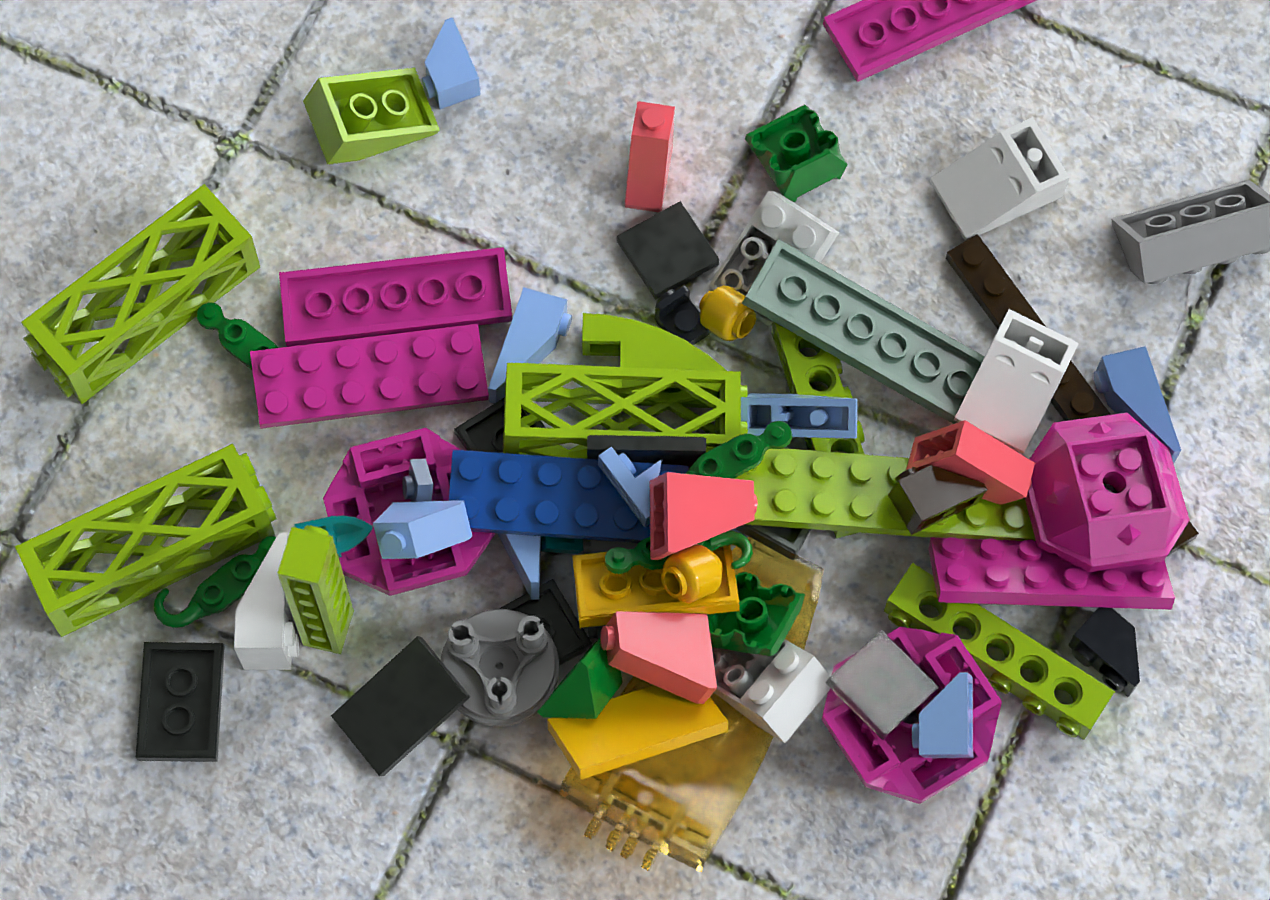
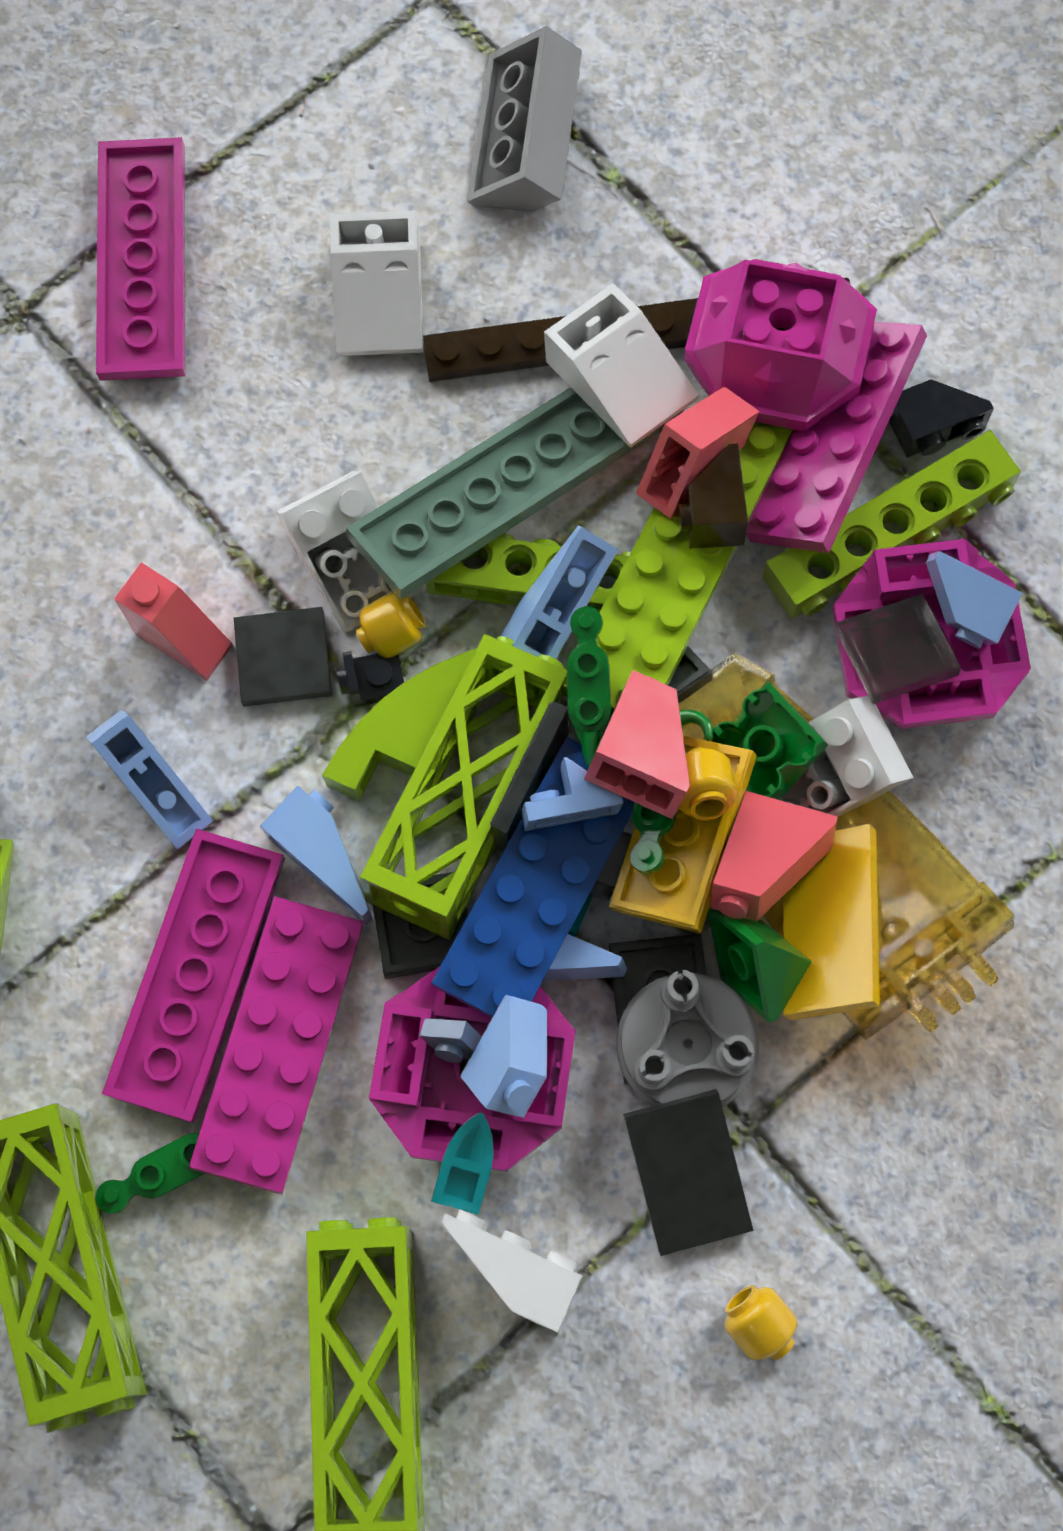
camera: 60 degrees left, 5 degrees up
(180, 702) = (567, 1423): pearl dark grey tile -> none
(218, 590) = (452, 1317): green piece -> none
(310, 807) = (760, 1323): none -> yellow head
(316, 589) = (546, 1201): lime brick -> none
(527, 197) = (149, 778): none -> light blue slope
(797, 152) = (236, 471): green slope -> none
(1133, 388) = (674, 265): medium blue slope -> none

